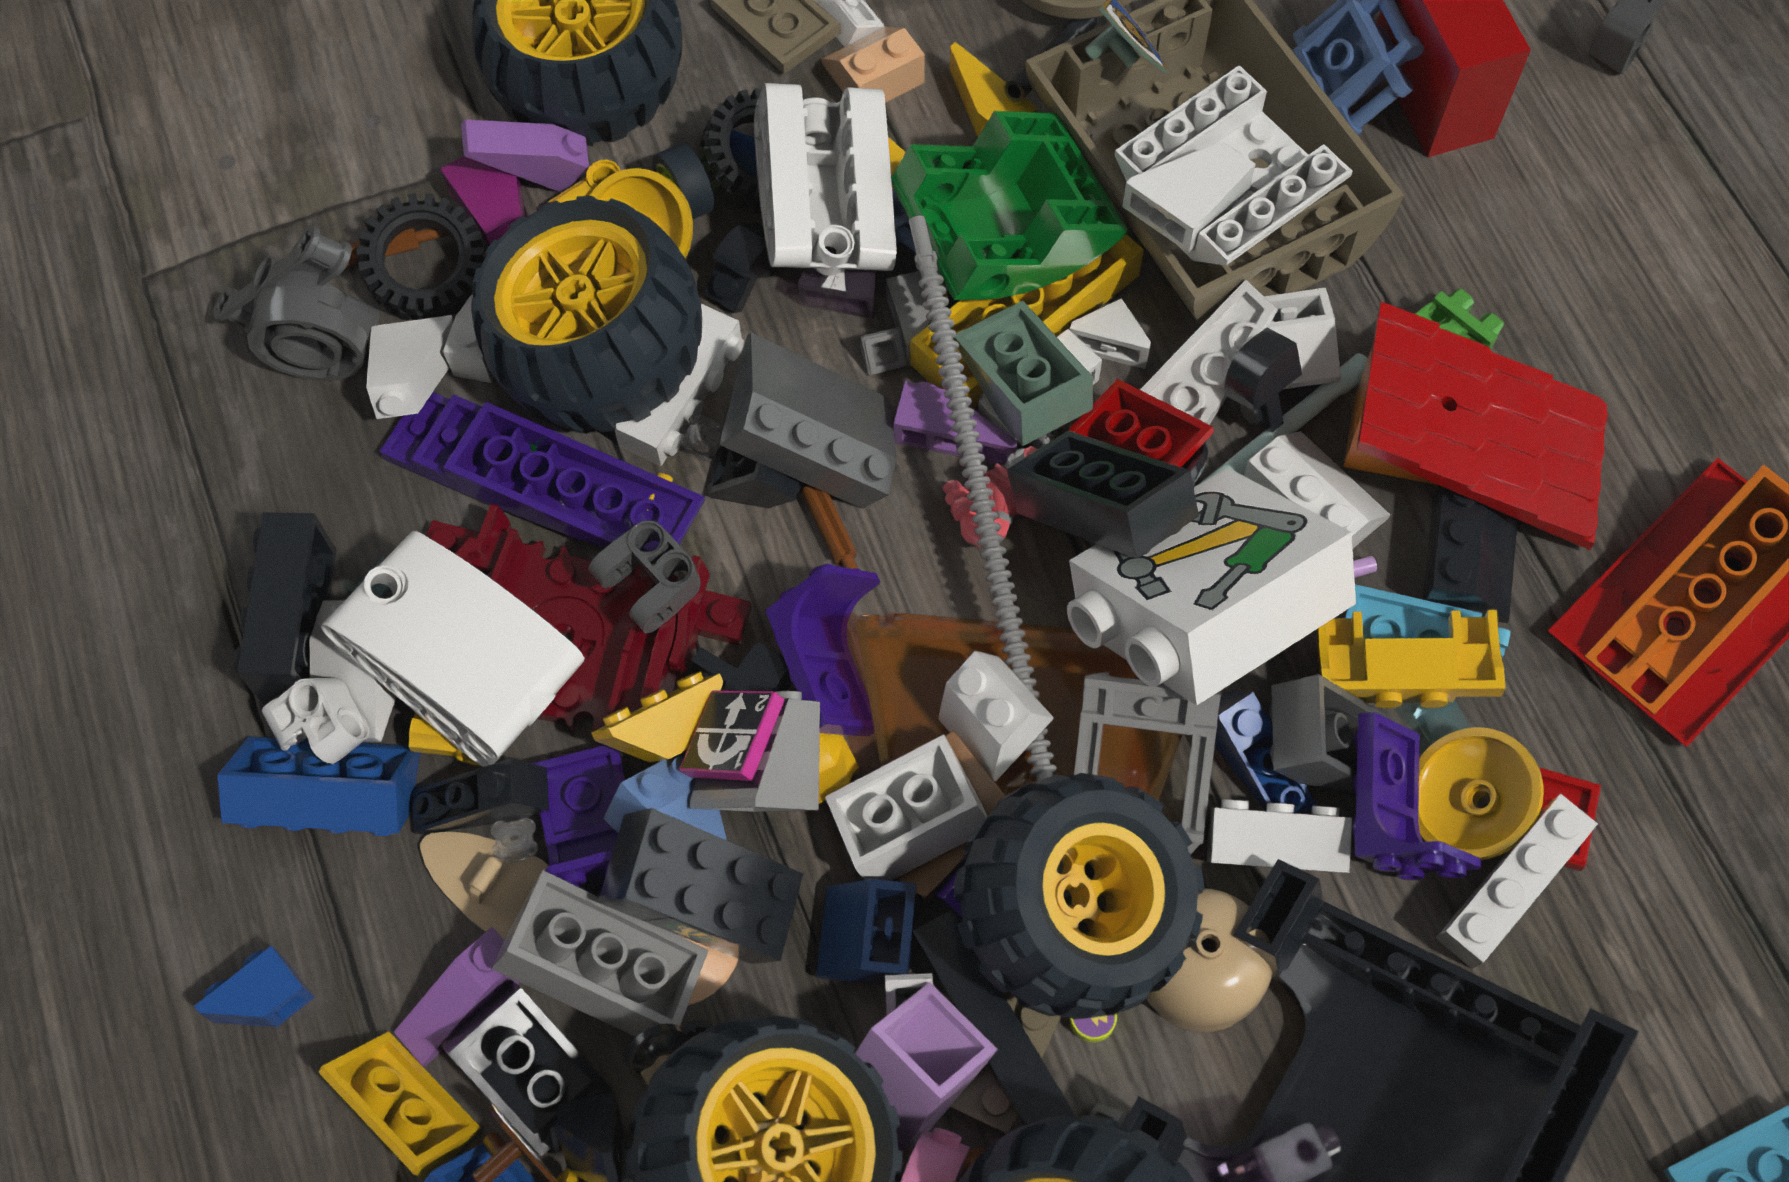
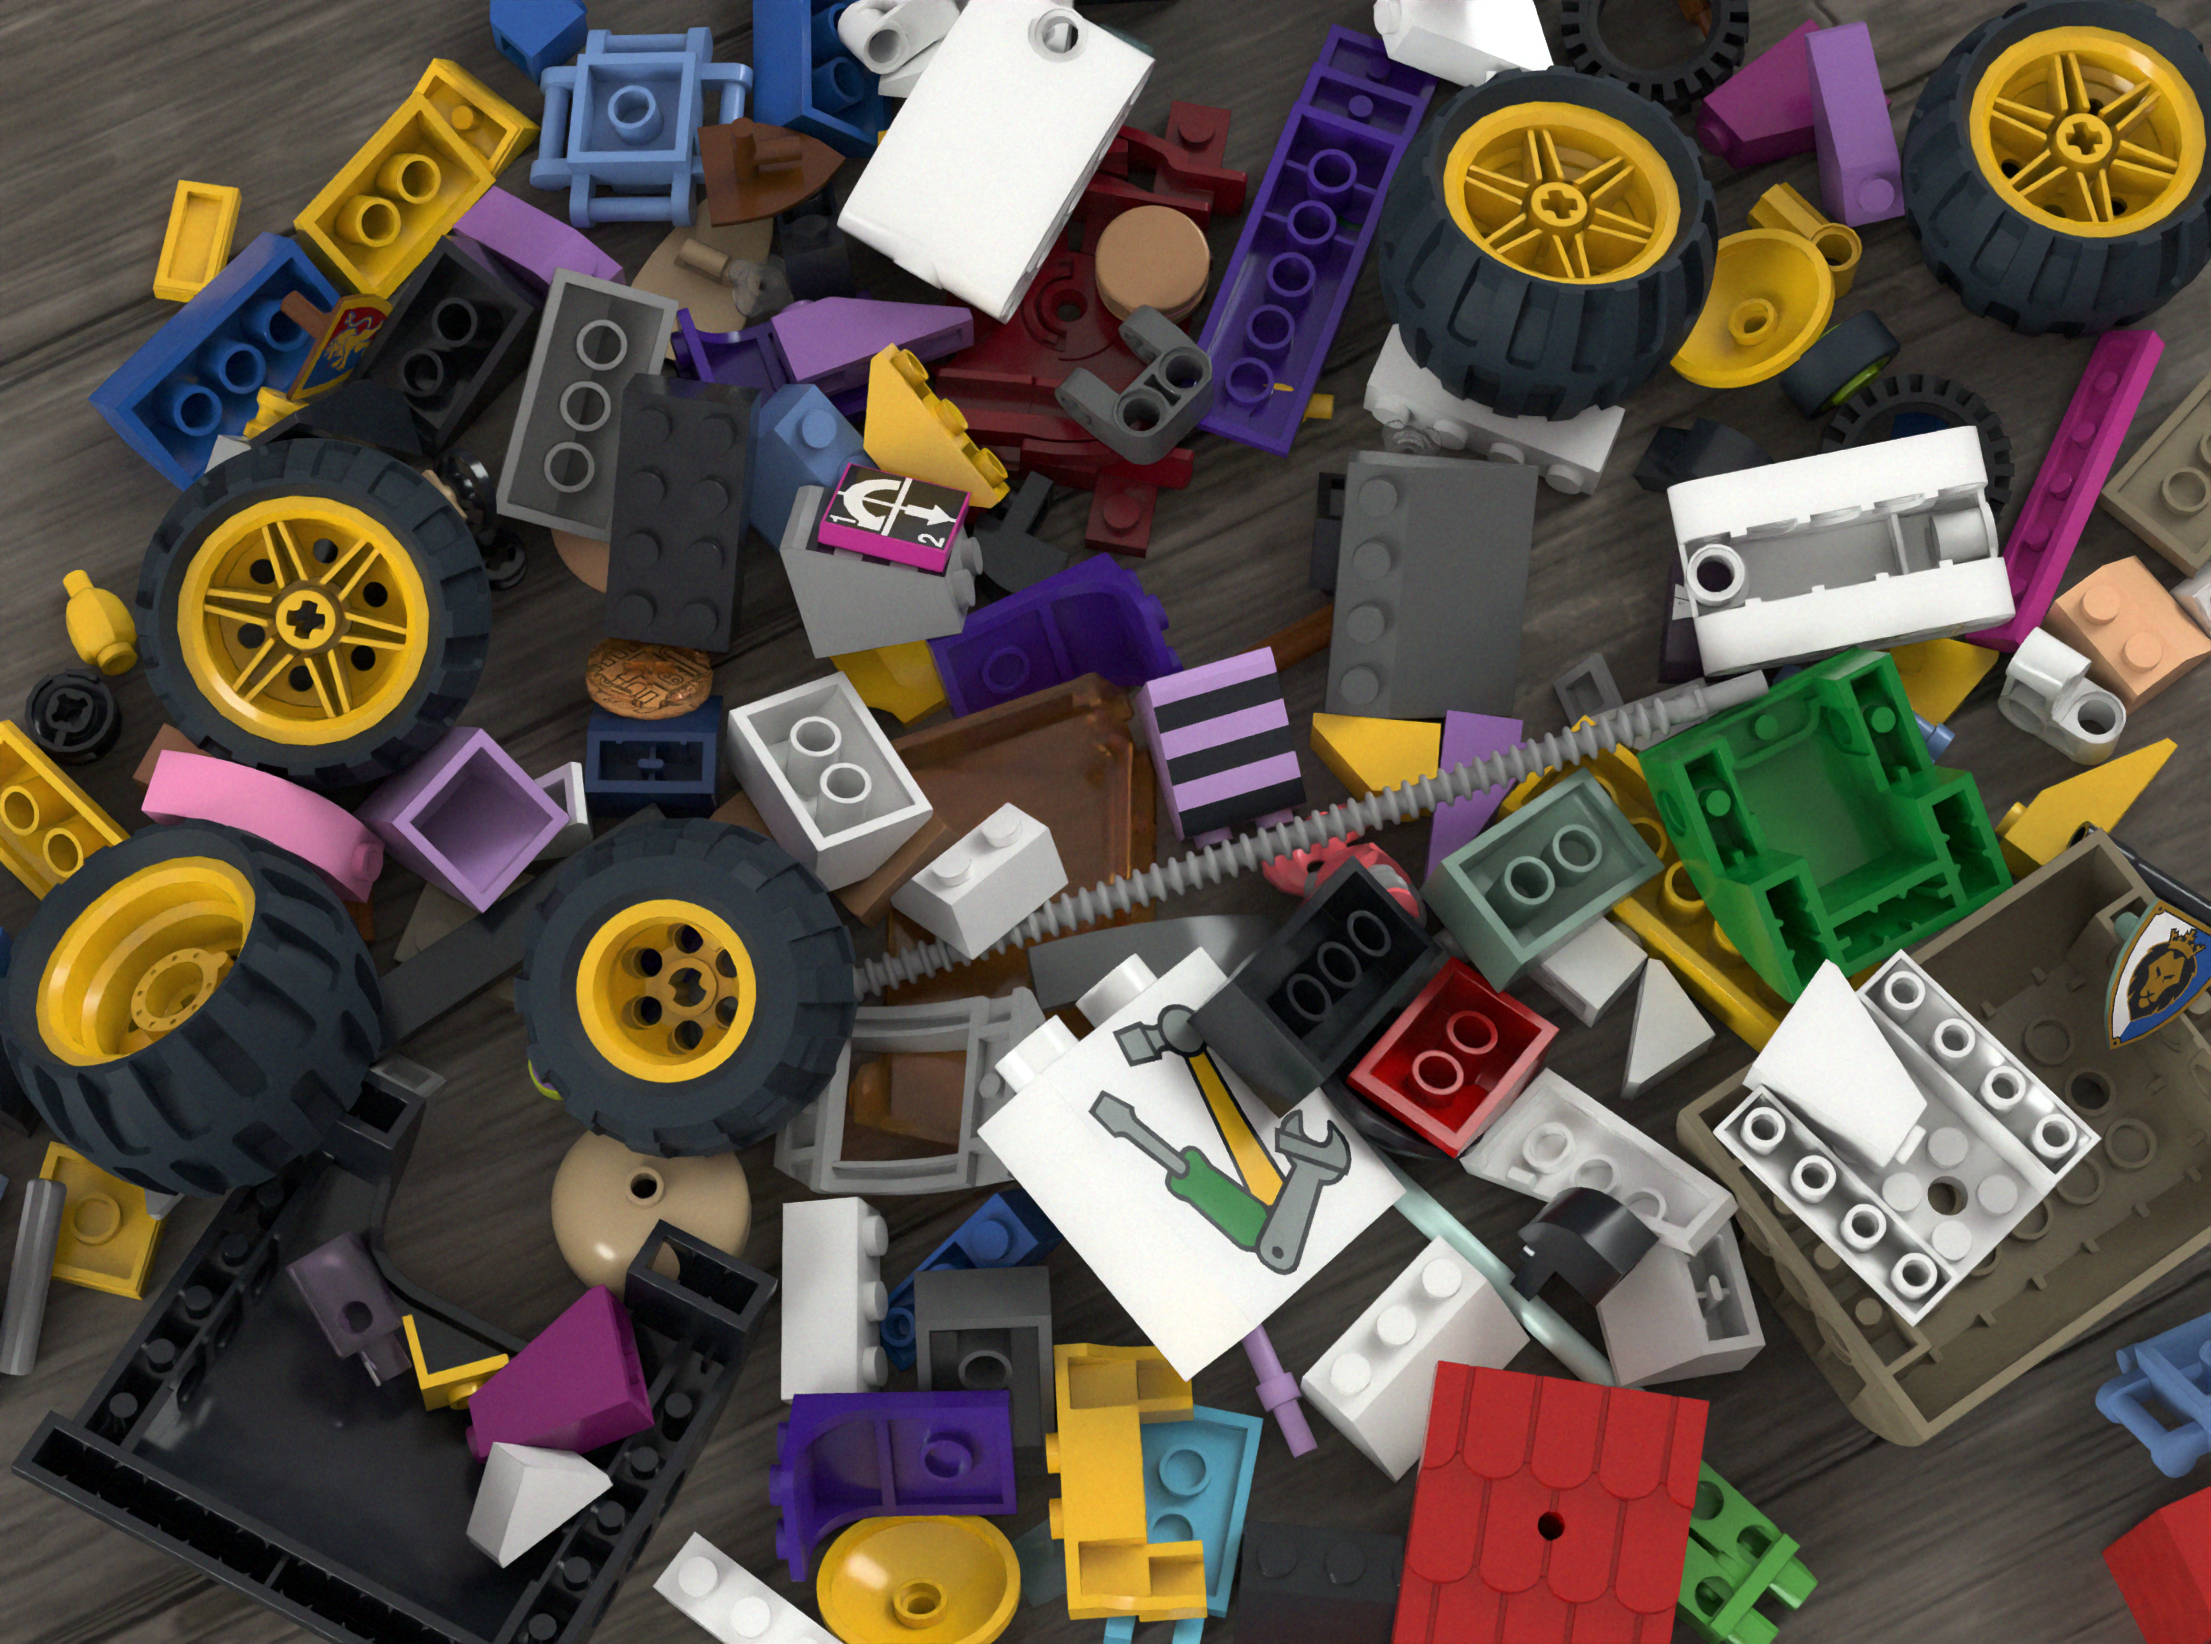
camera: 80 degrees right, 5 degrees up
(337, 1035) = (477, 114): none -> yellow slope
(369, 915) = (634, 124): none -> medium blue brick
(431, 822) = (761, 170): none -> reddish brown shield
(550, 569) = (1152, 260): none -> medium nougat head
(576, 770) = (837, 337): none -> medium lavender slope
(745, 64) = (2072, 479): none -> dark pink plate
(816, 934) = (648, 678): none -> clear orange tile
(911, 103) = (2051, 696): none -> white piece
(911, 557) = (1222, 747): none -> slope
(920, 470) = (1376, 752): none -> yellow slope
(1054, 640) = (1073, 965): none -> dark grey slope
(1342, 1091) = (454, 1384): none -> yellow bracket
(1352, 1013) = (568, 1386): none -> magenta slope
(1436, 1033) = (528, 1496): none -> white slope

